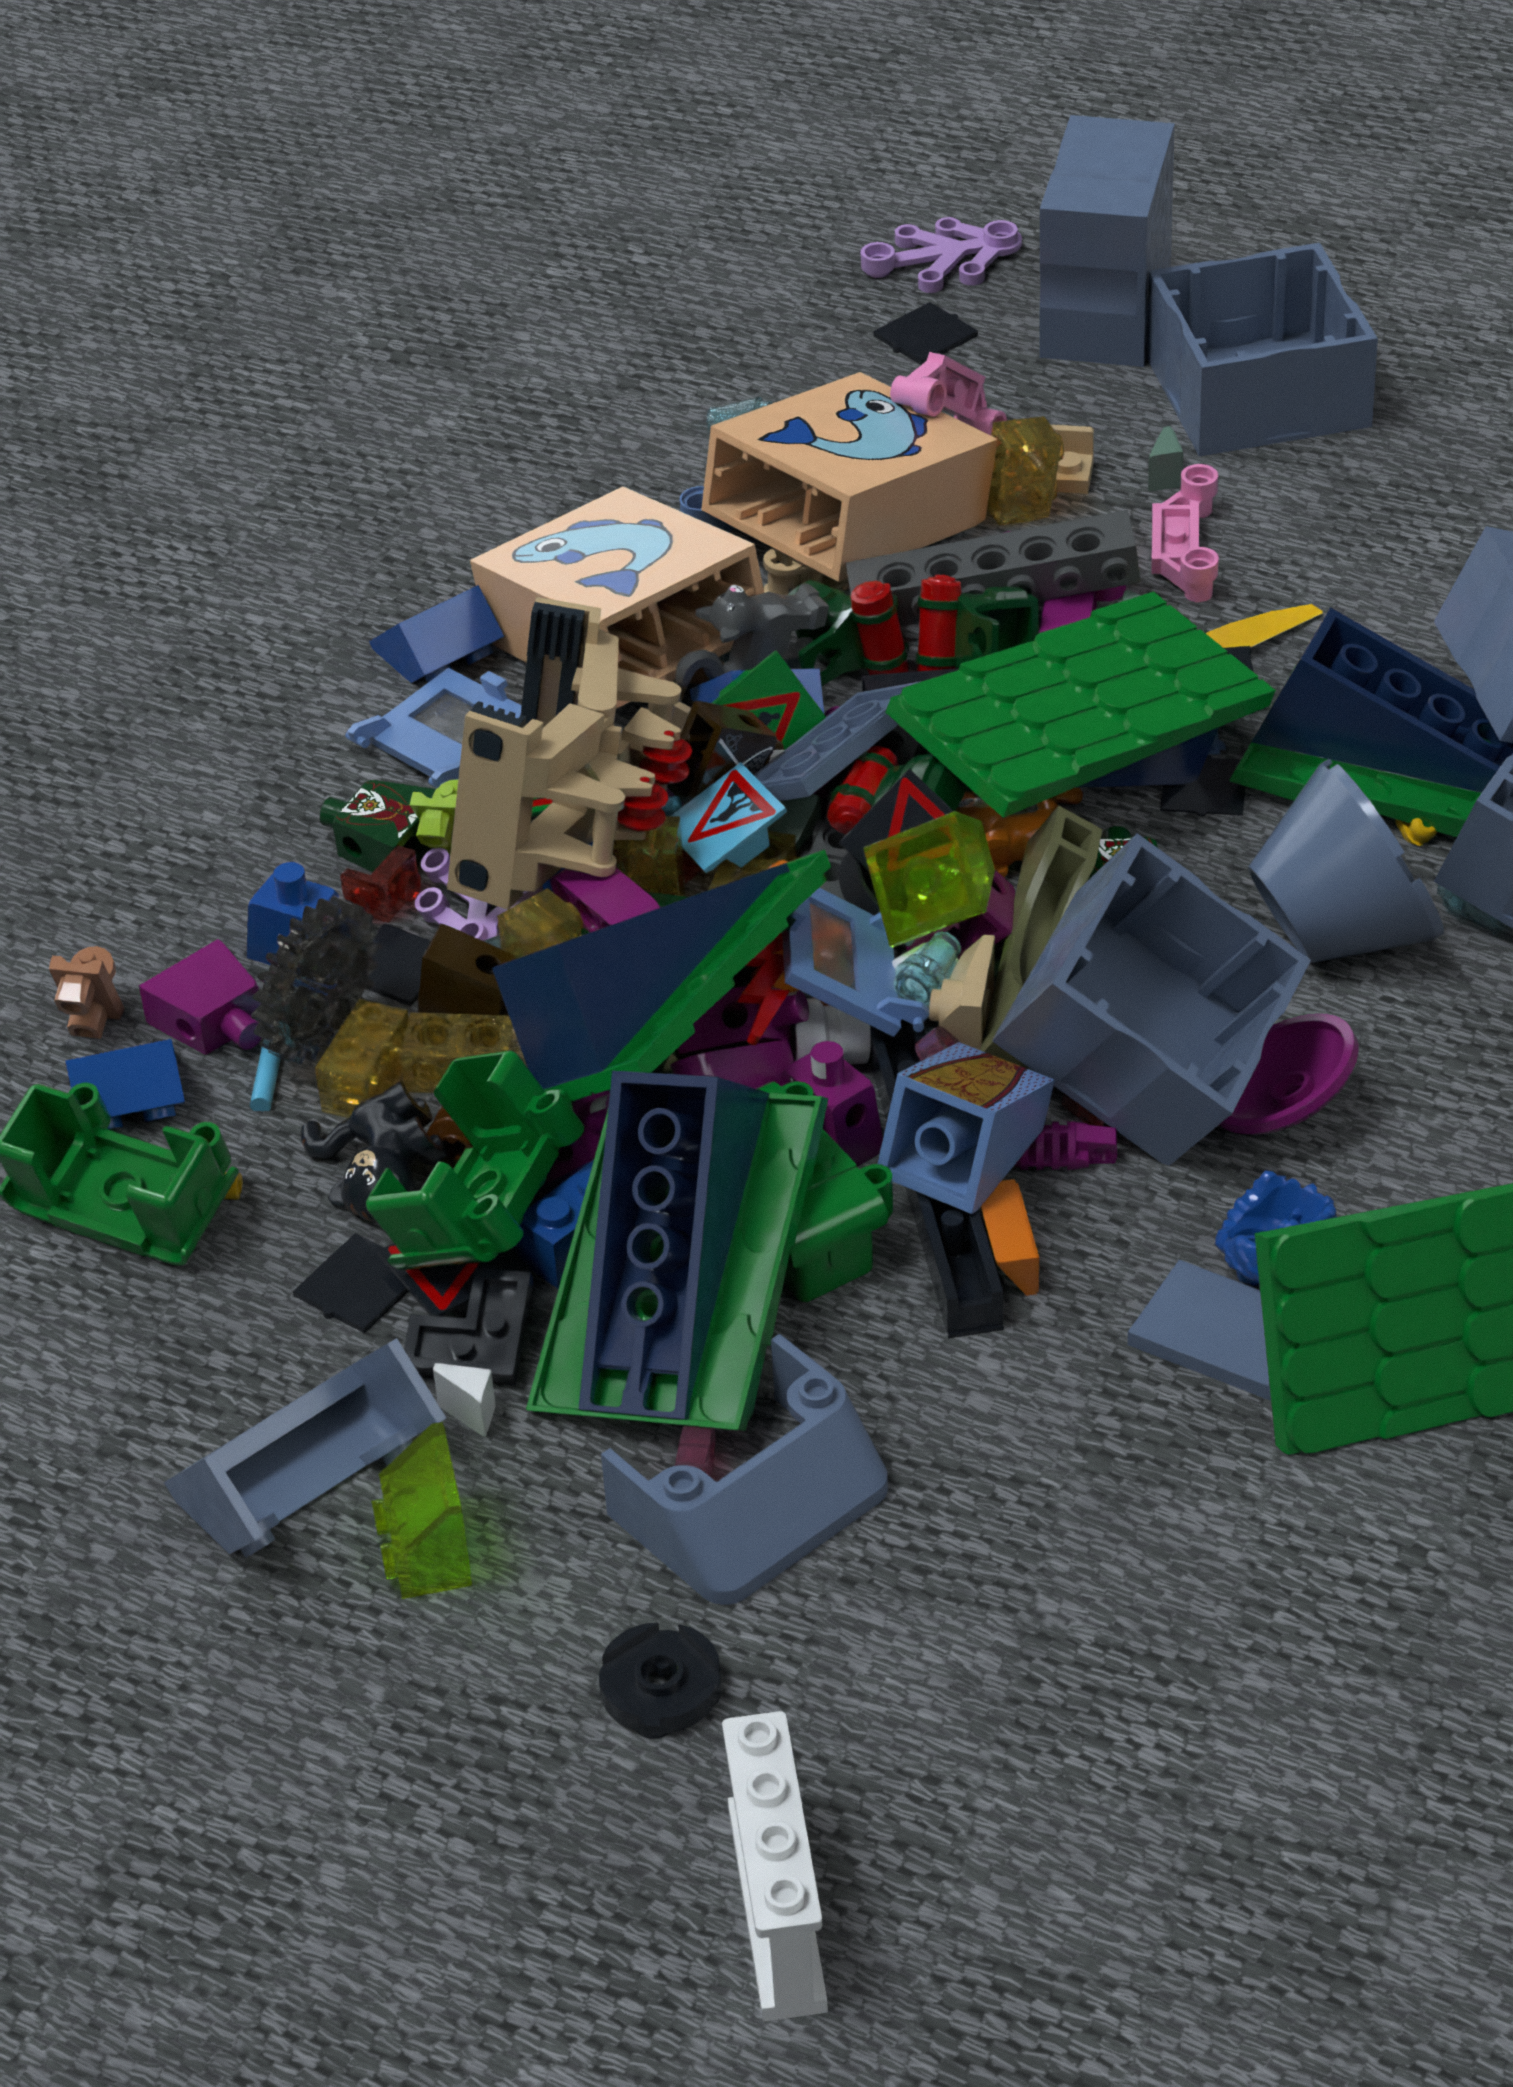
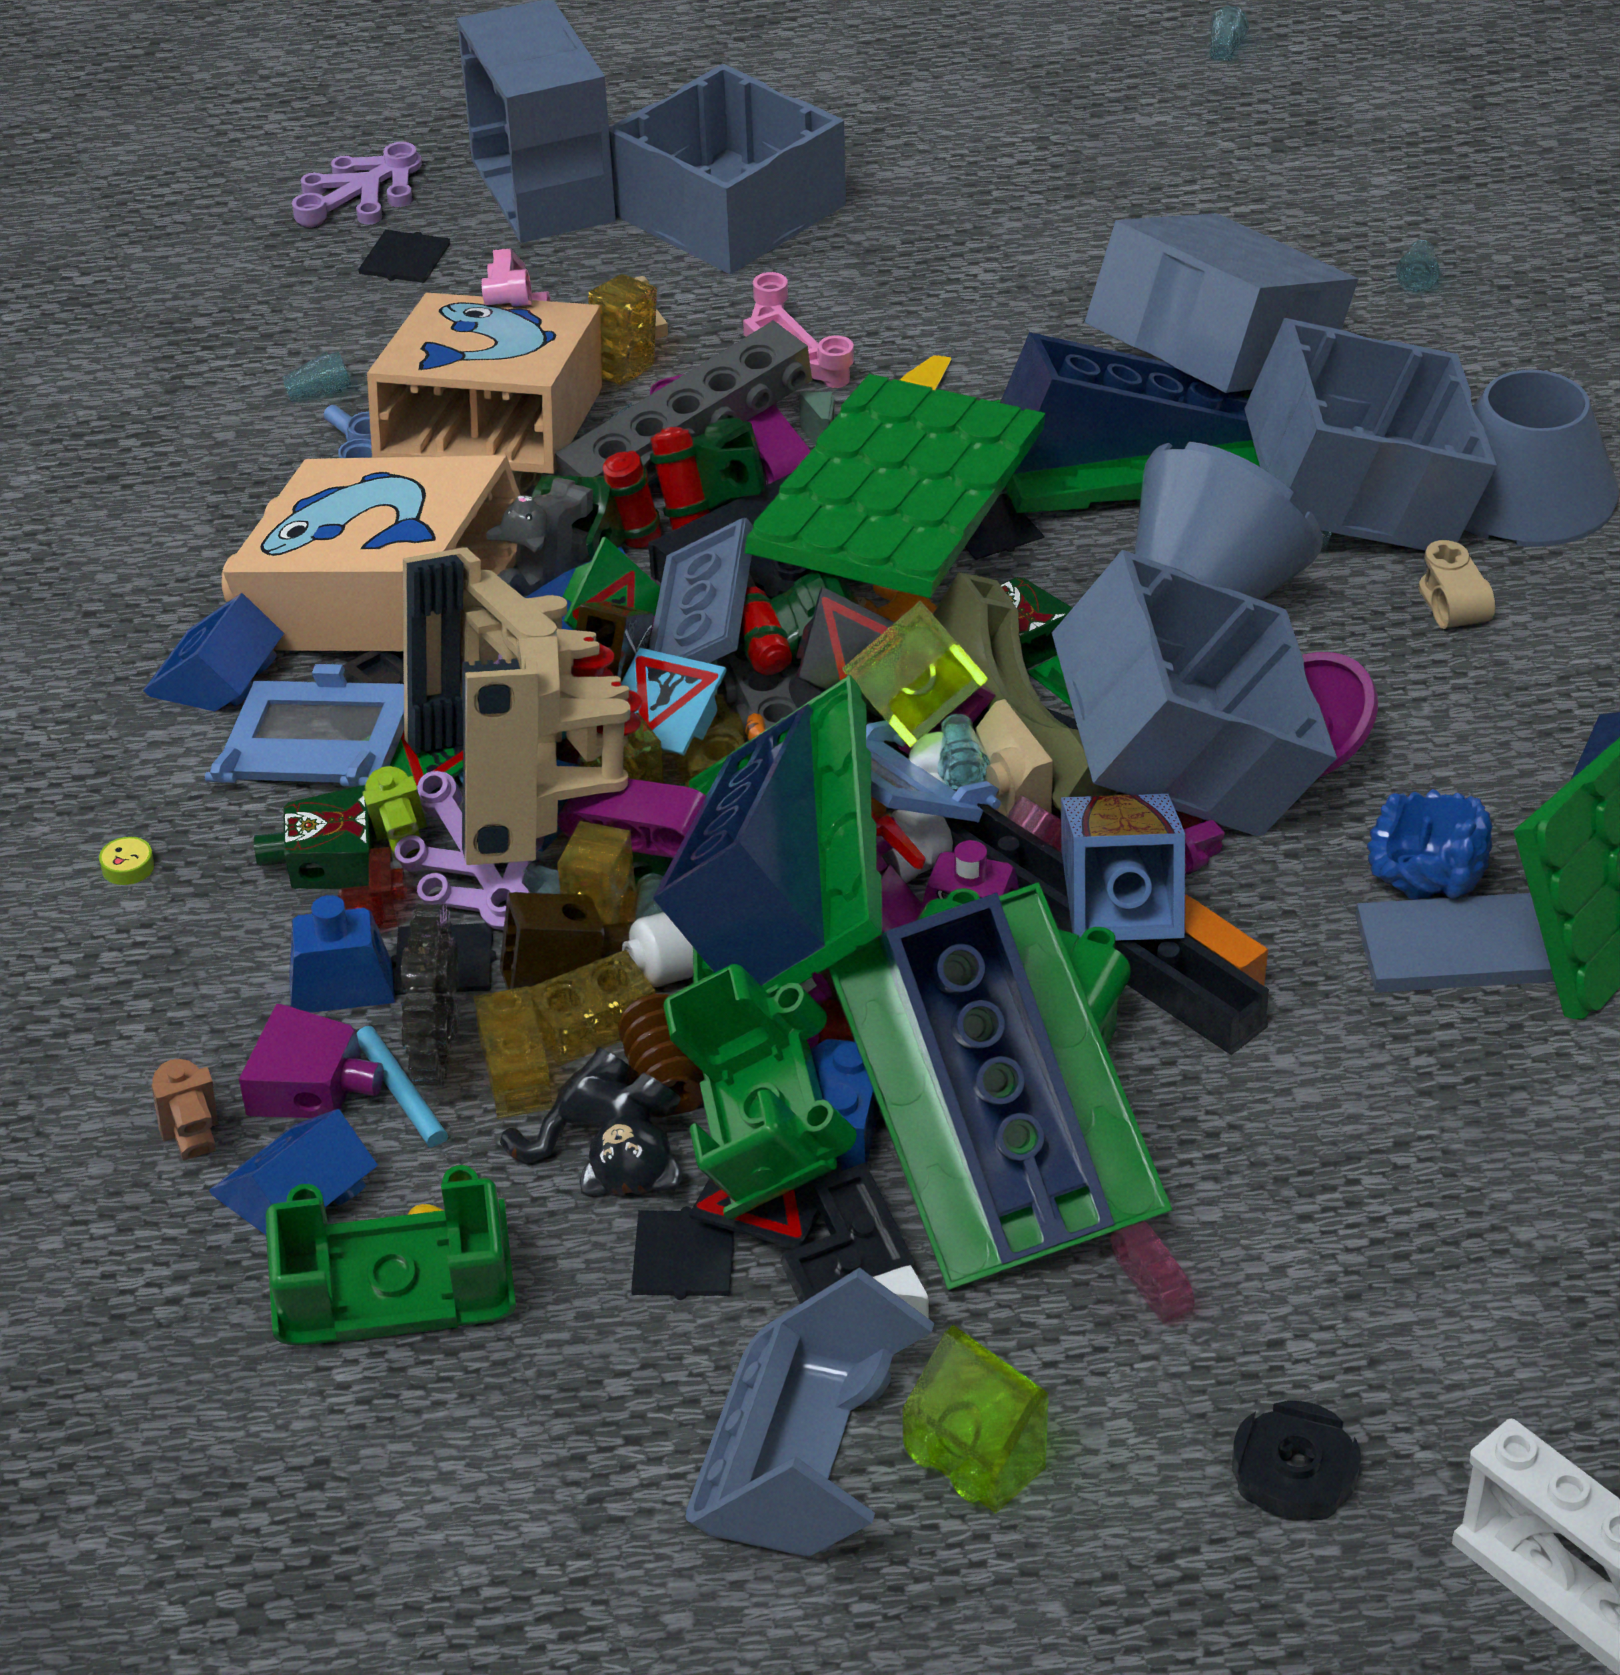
camera: 35 degrees left, 0 degrees up
(233, 778) = (126, 860): none -> tile
(770, 1509) = (1218, 1309): sand blue windscreen -> none
(1165, 462) = (720, 284): sand green slope -> none

